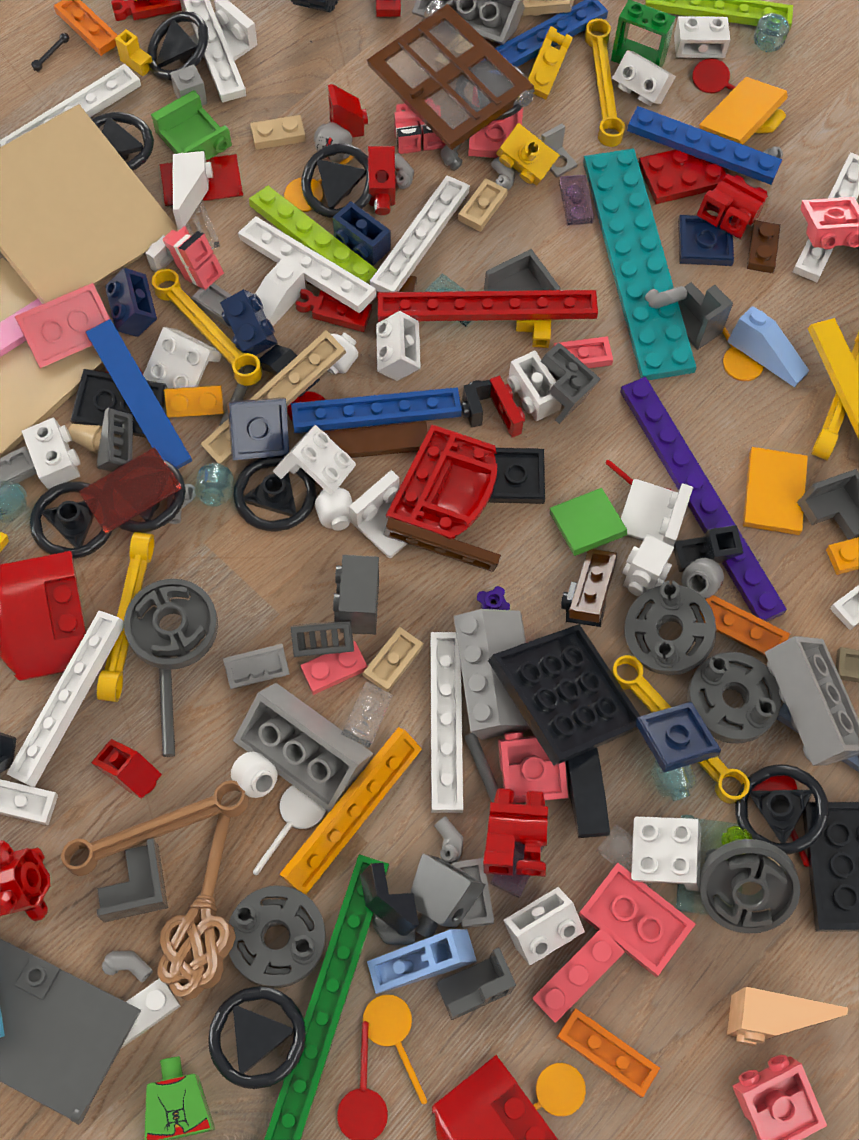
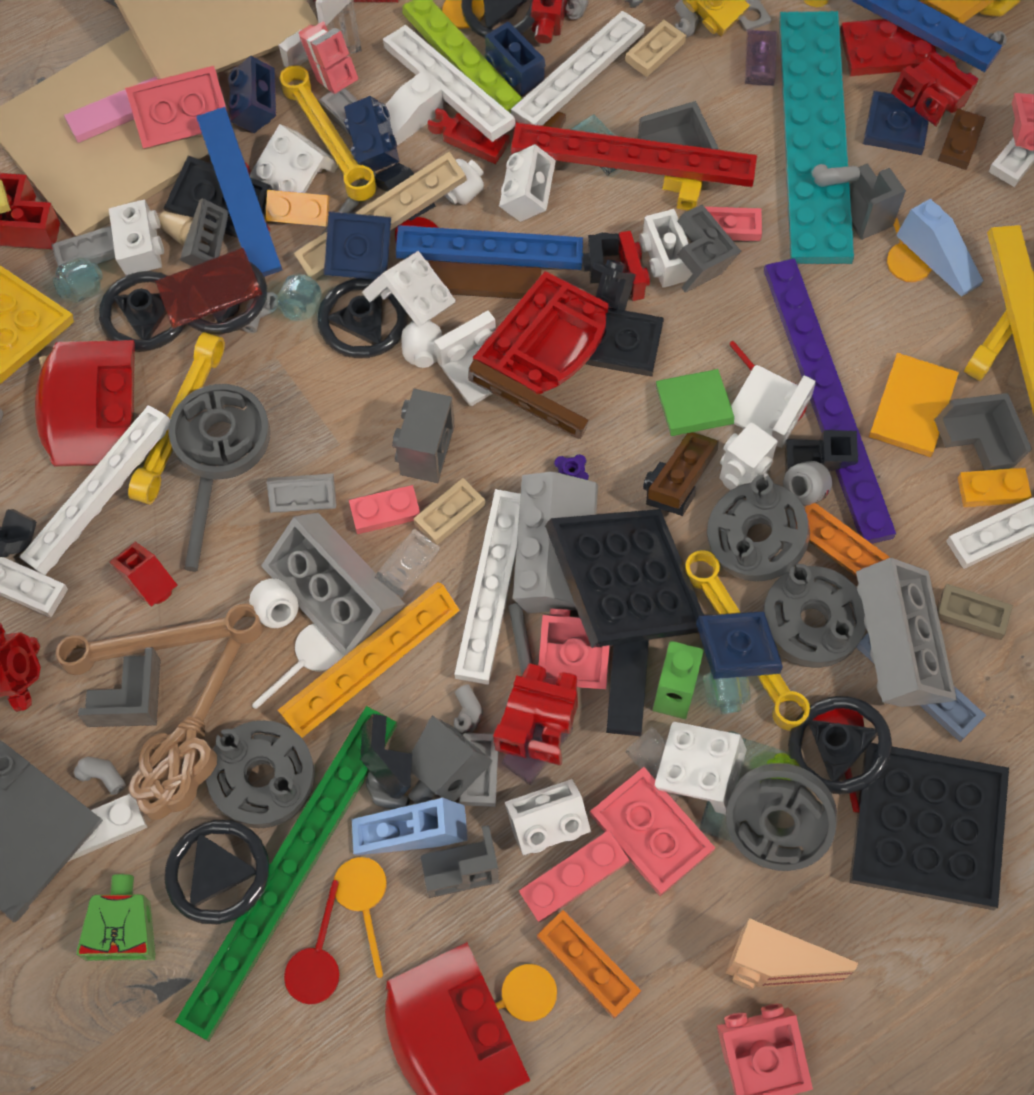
camera: 15 degrees right, 0 degrees up
(298, 638) = (352, 475): dark grey slope -> none
(495, 426) = (614, 283): none -> black bracket
(630, 774) = (678, 677): none -> bright green torso

